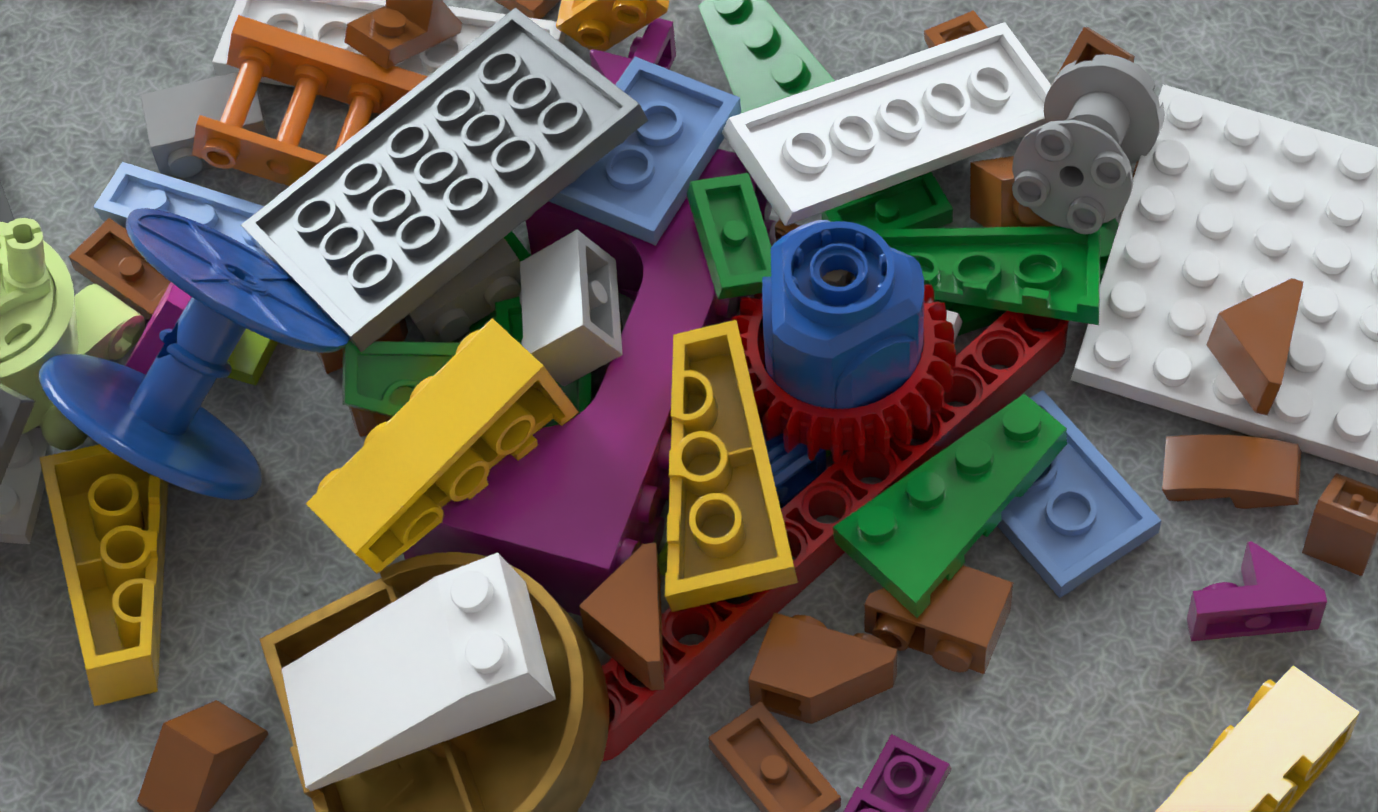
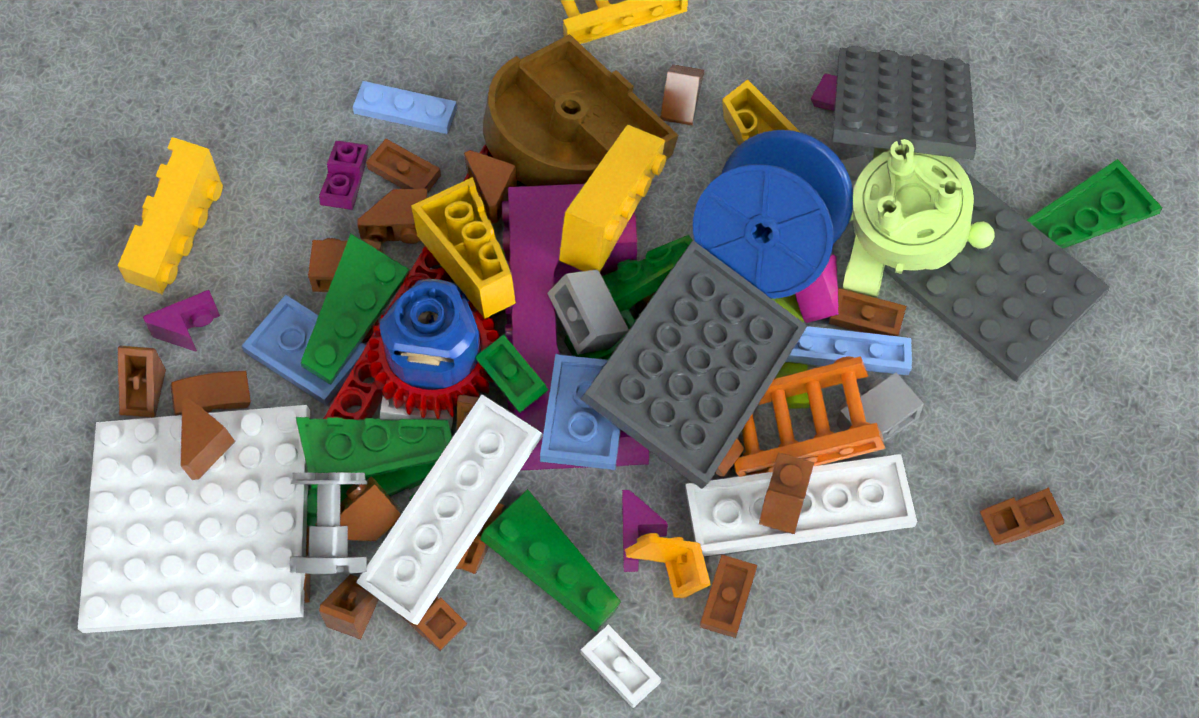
camera: 155 degrees right, 5 degrees up
(418, 673) = (573, 107): white slope -> none

